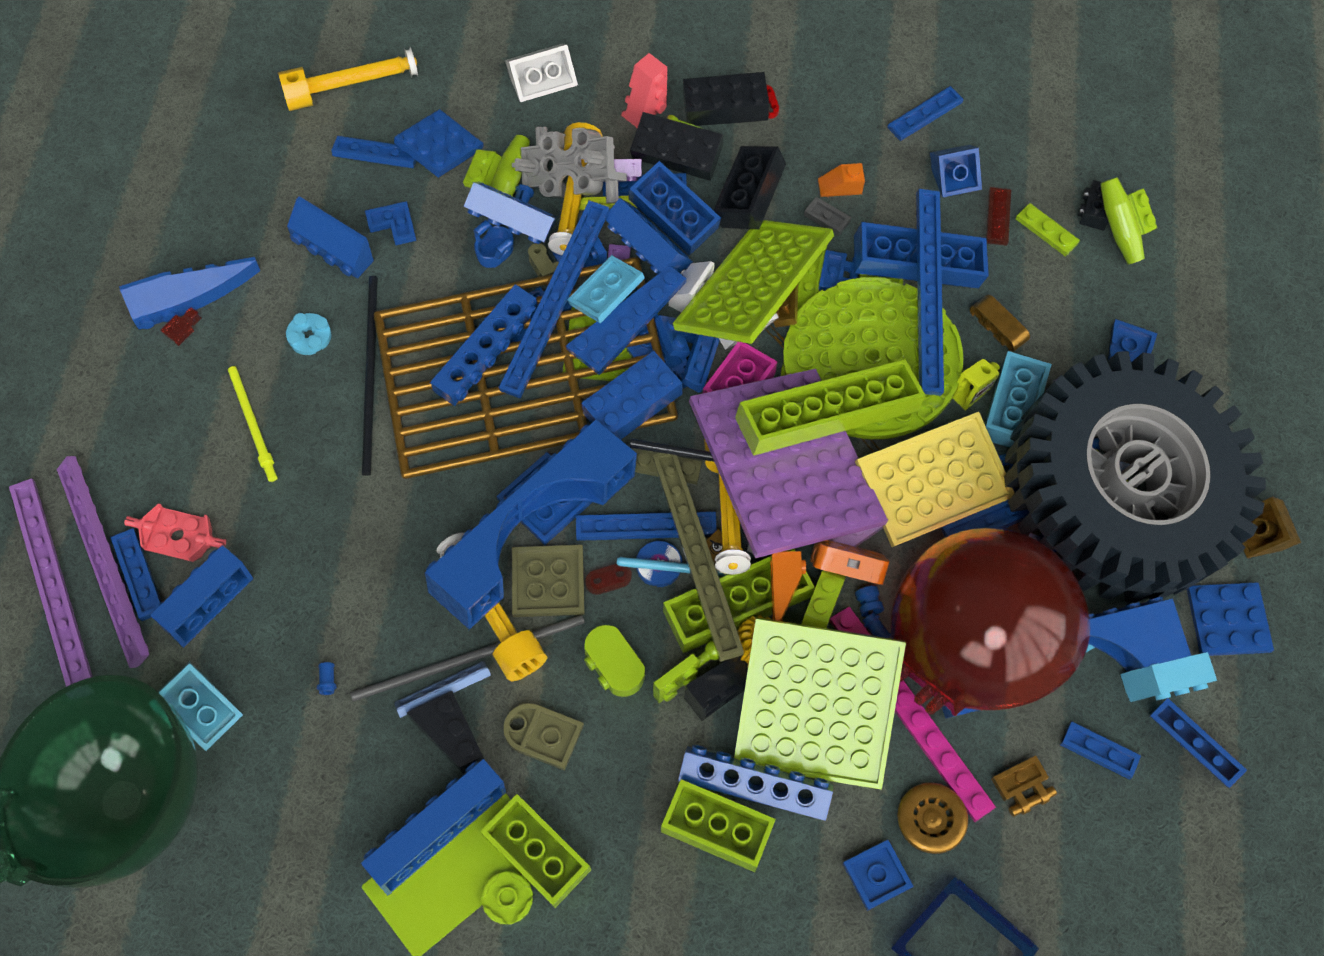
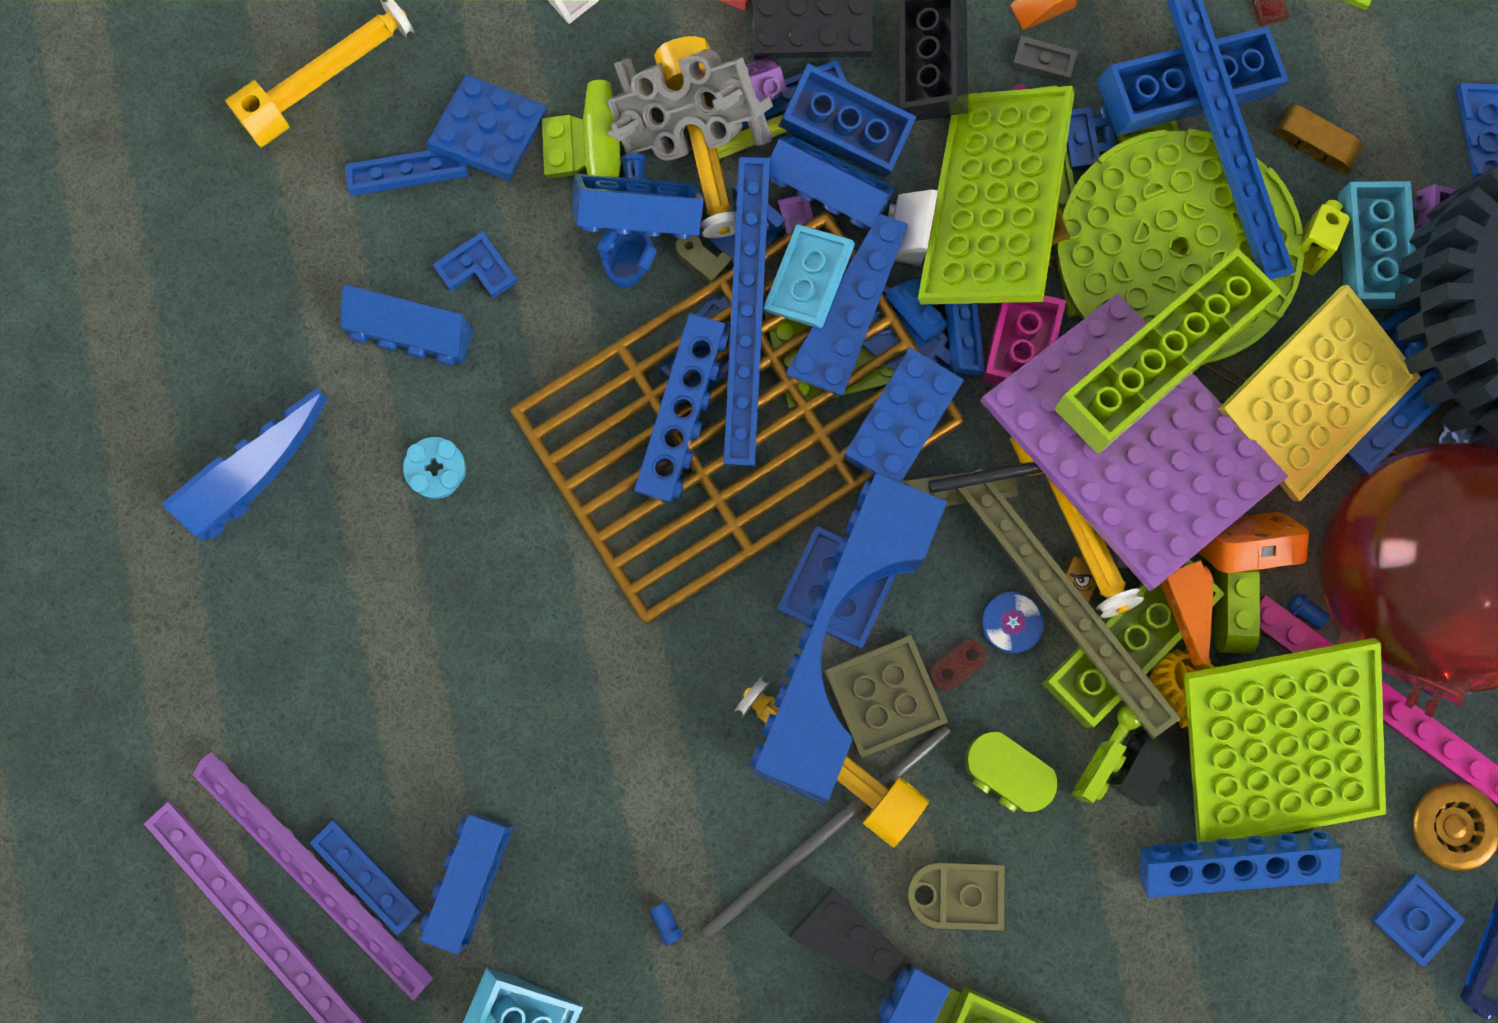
camera: 20 degrees left, 15 degrees up
(160, 524) = (364, 813): coral plate -> none
(180, 328) = (260, 523): clear red plate -> none
(265, 458) = (457, 662): neon yellow bar -> none
(369, 377) = (540, 497): black piece -> none
(452, 683) = (815, 885): medium blue tile -> none
(636, 526) = (966, 584): blue plate -> none
(656, 565) = (1018, 626): medium azure bar -> none
(717, 825) = (1216, 935): lime brick -> none
(869, 600) = (1288, 581): blue wheel -> none

